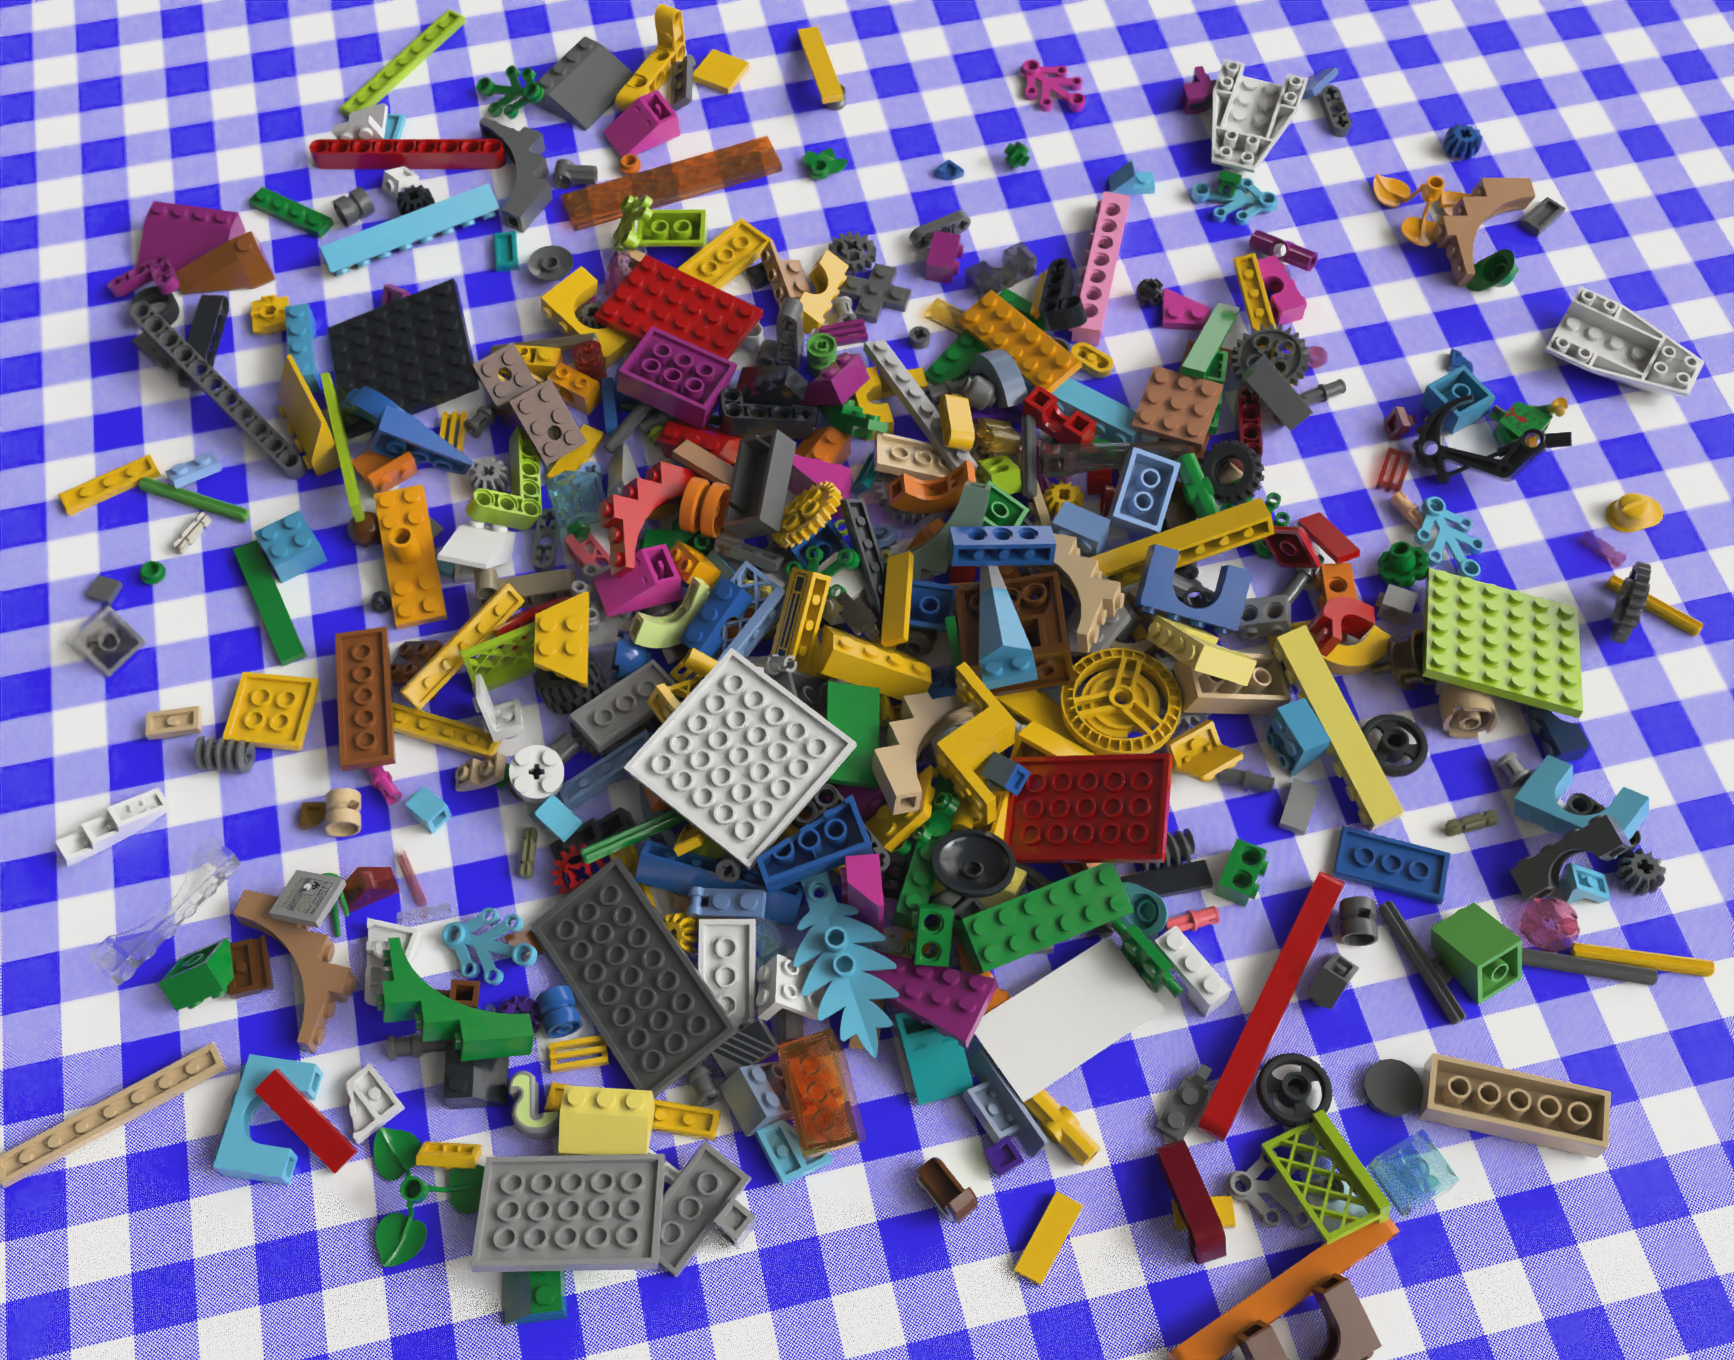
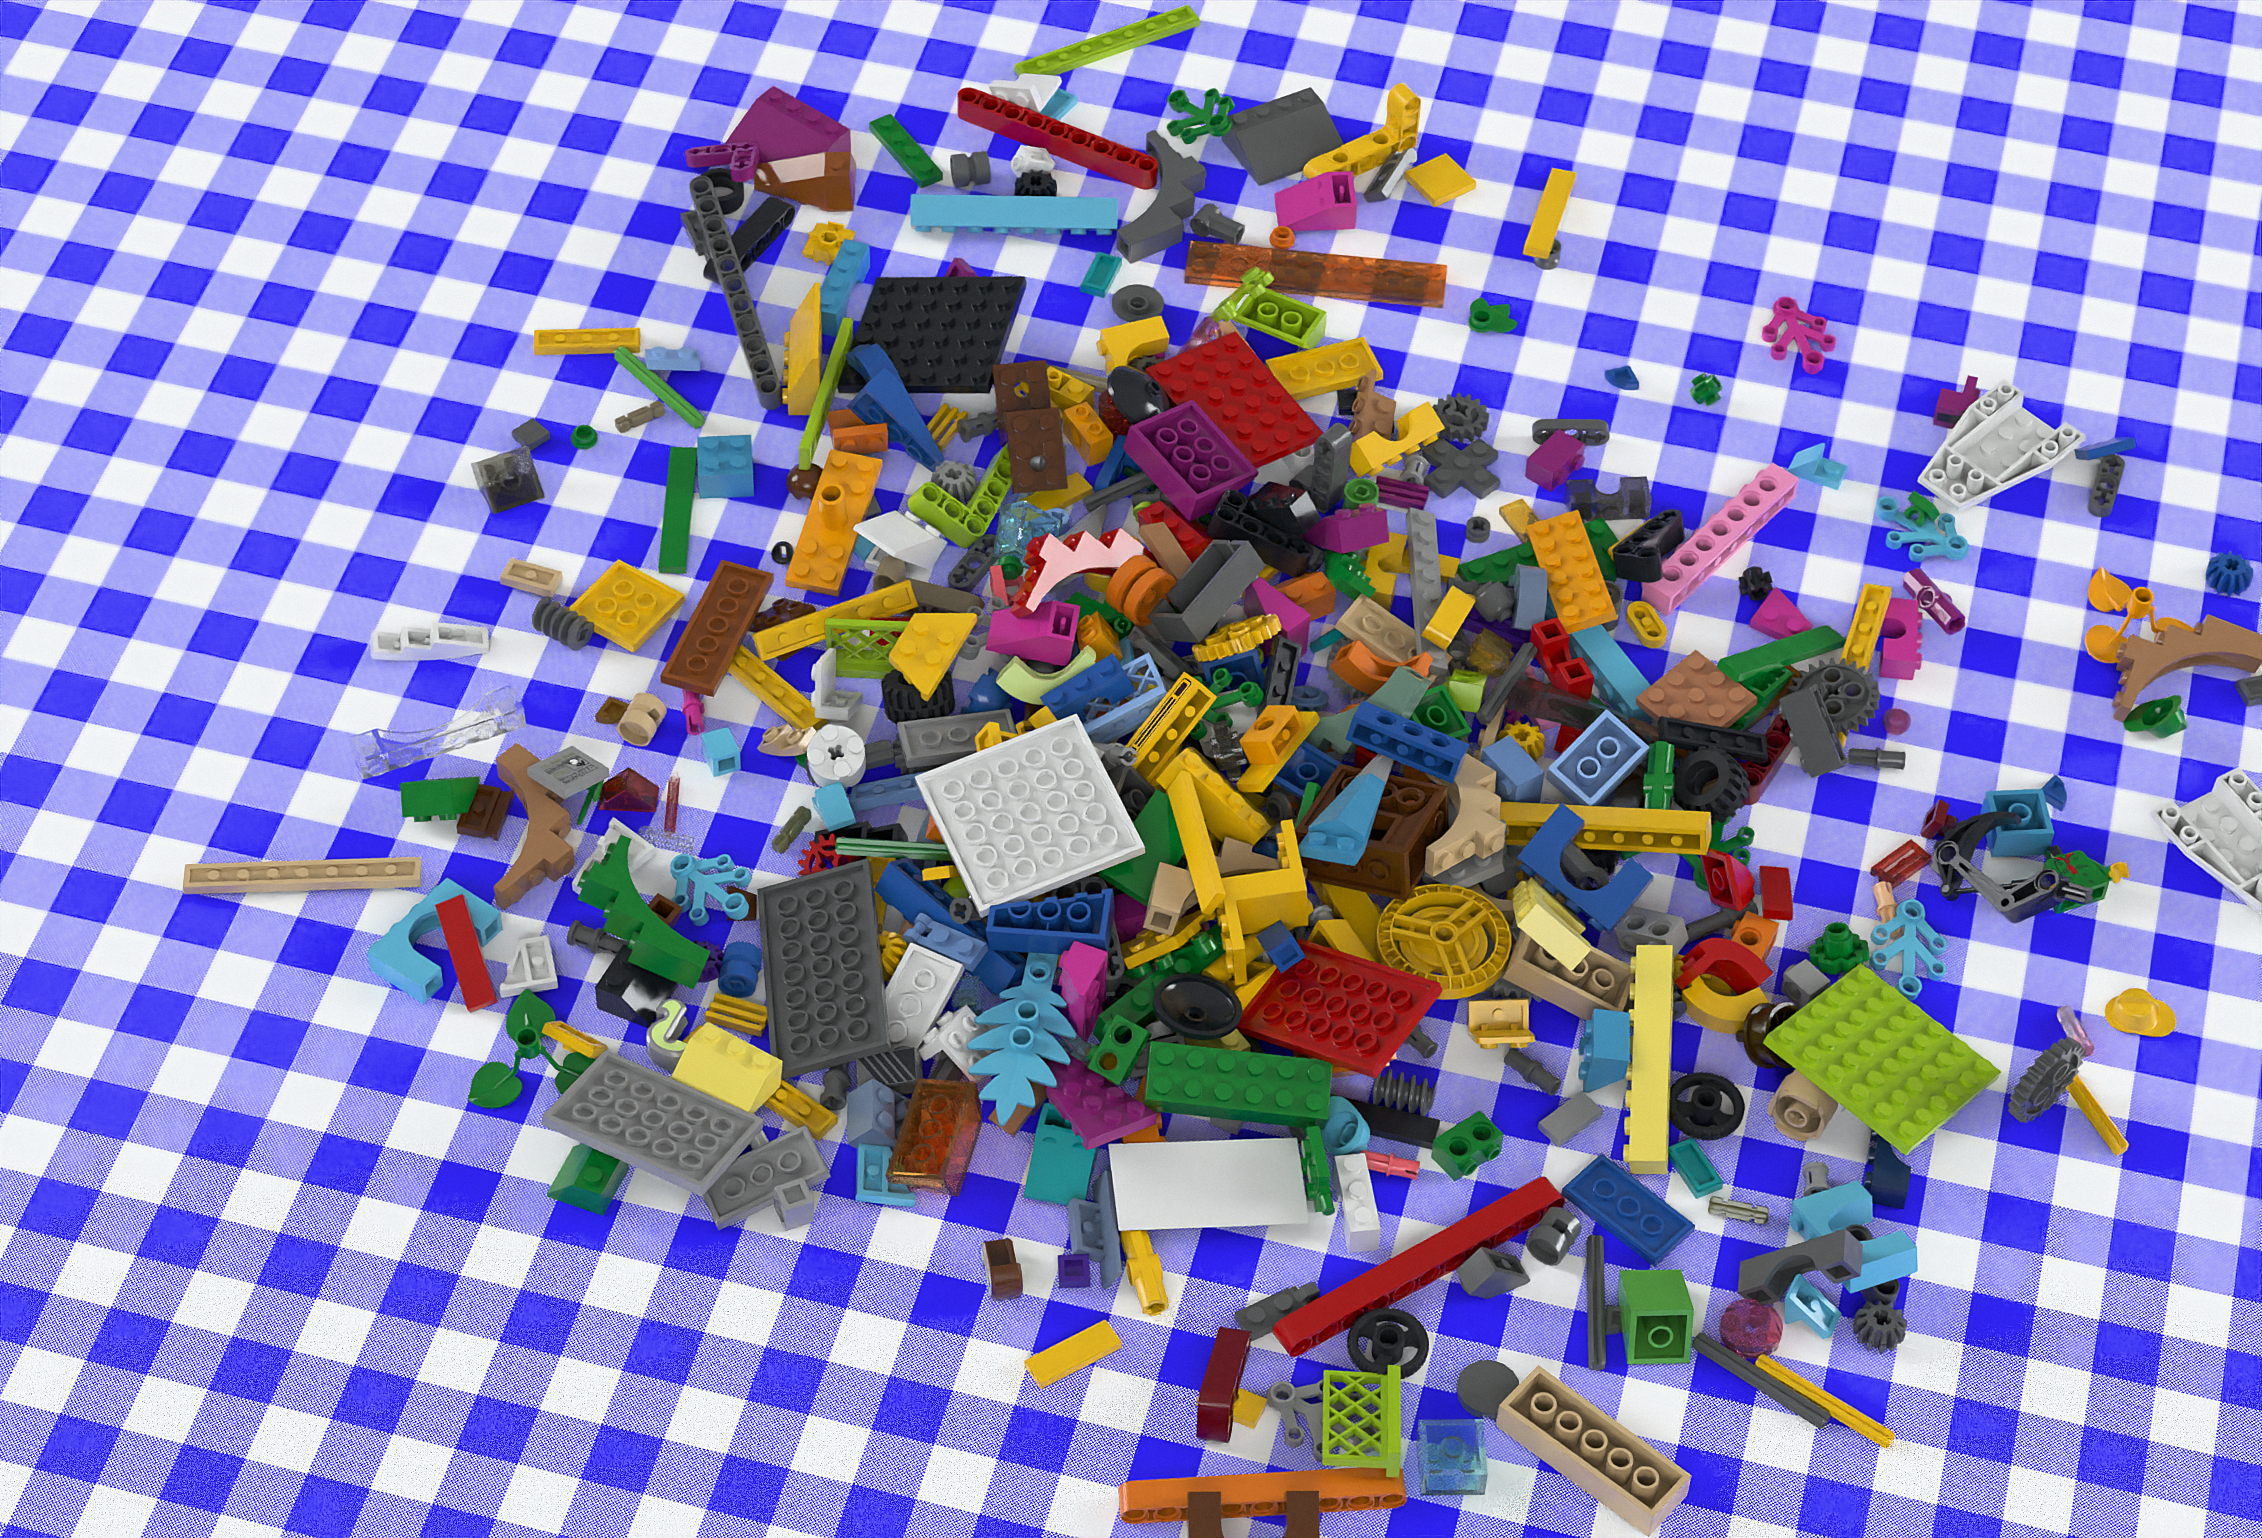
camera: 25 degrees right, 10 degrees down
(604, 341) = (1136, 394): none -> black dish
(889, 588) = (1272, 734): none -> light orange brick
(894, 718) = (1196, 842): none -> yellow tile
(1205, 435) = (1691, 735): none -> black tile
(1418, 802) = (1694, 1168): none -> teal tile

